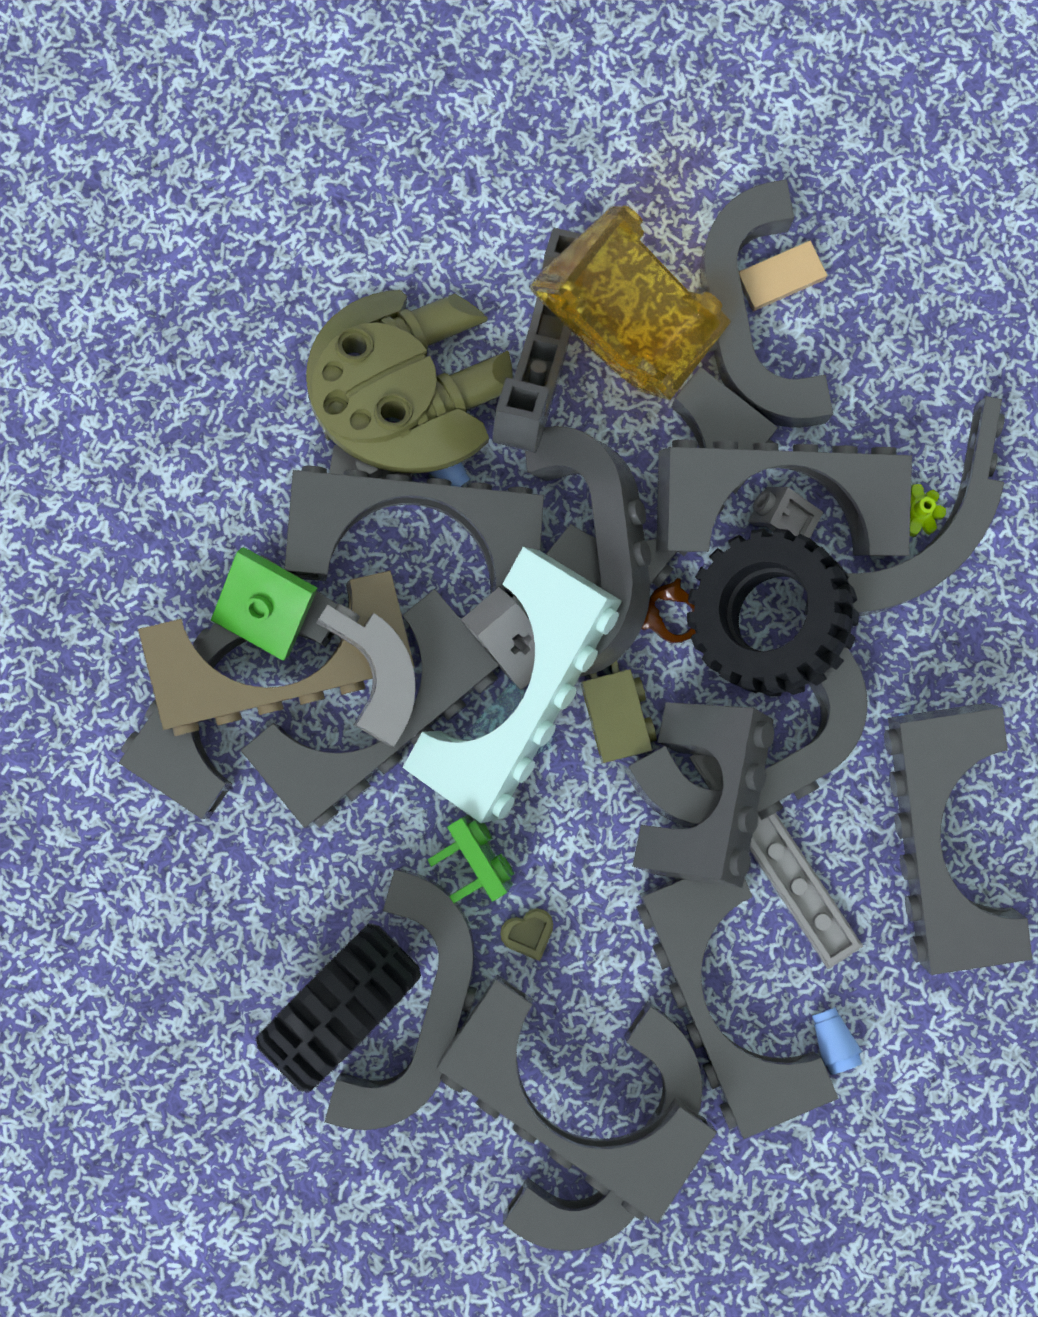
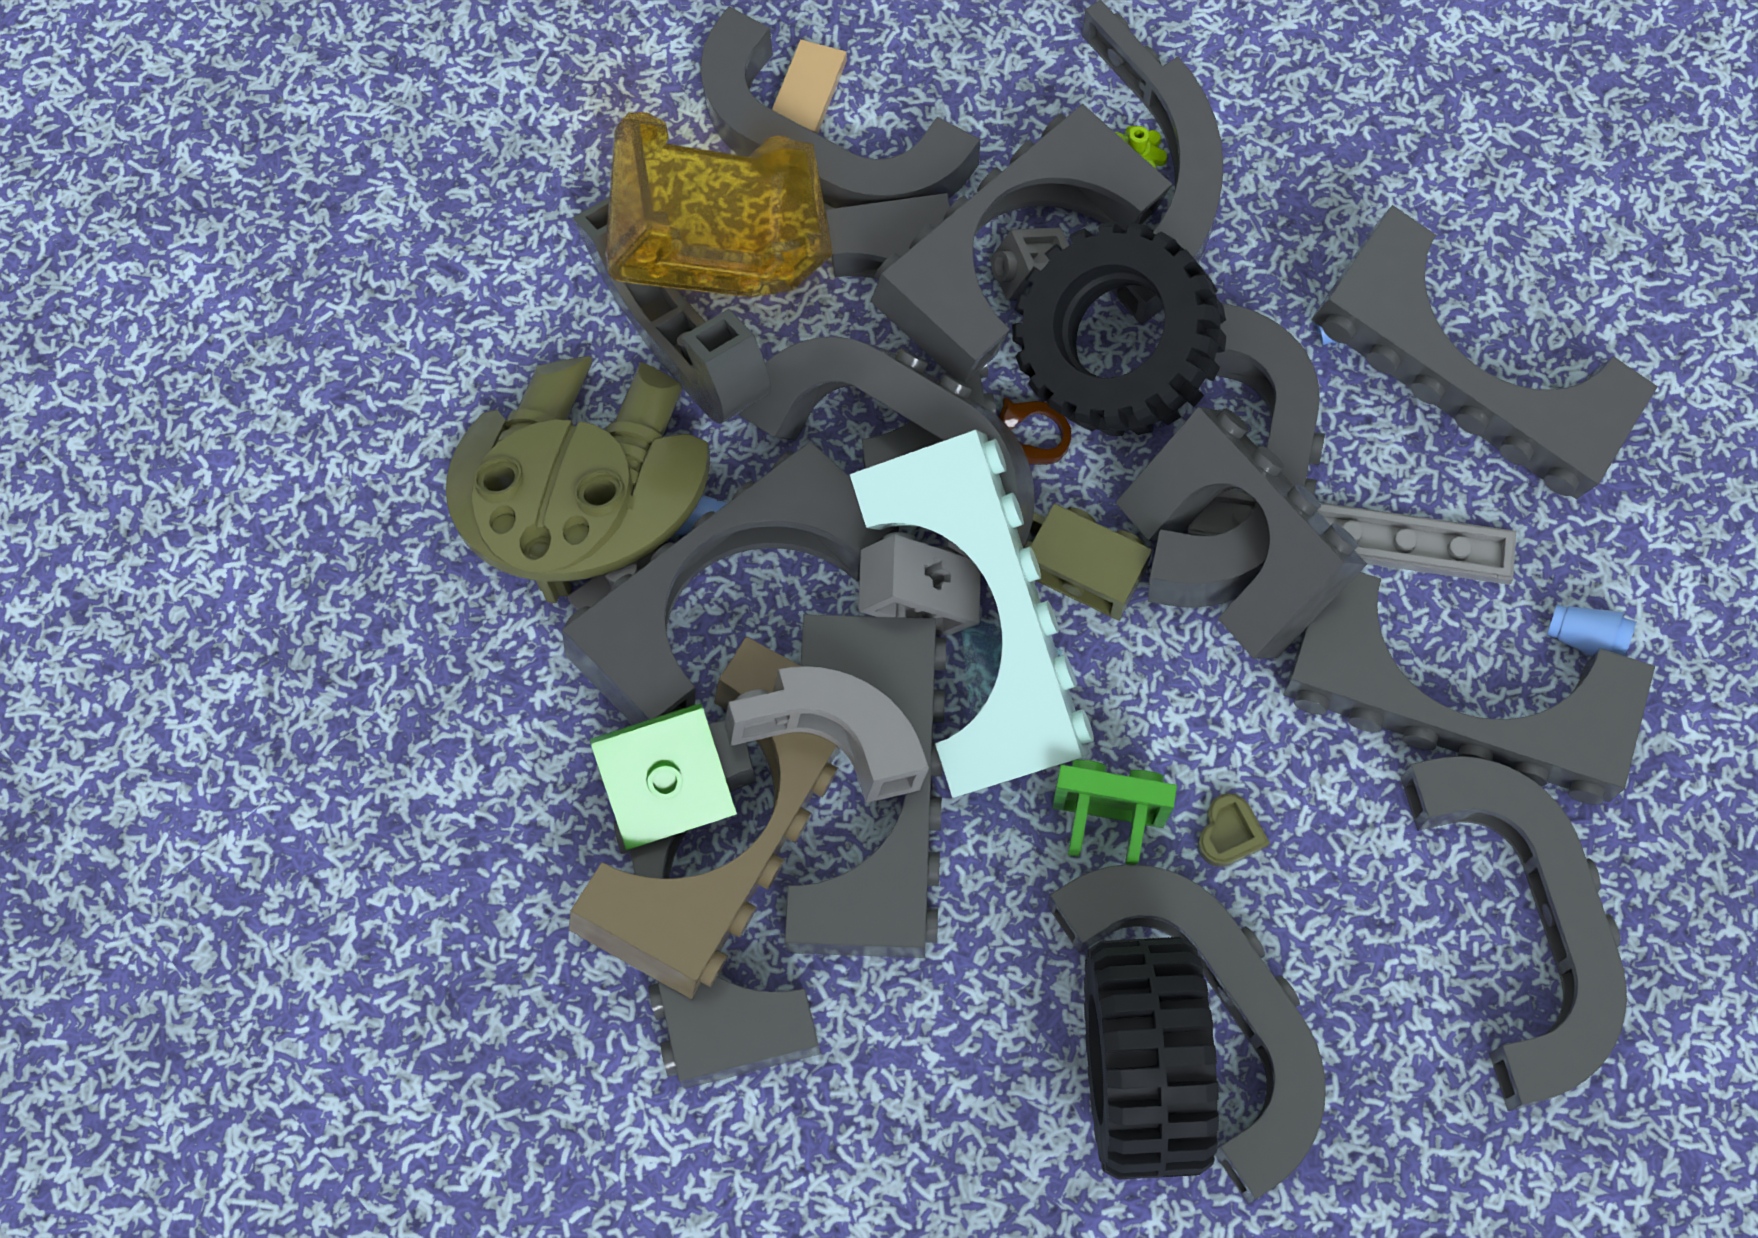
camera: 45 degrees left, 15 degrees down
(638, 1167) = (1575, 903): dark grey arch -> none

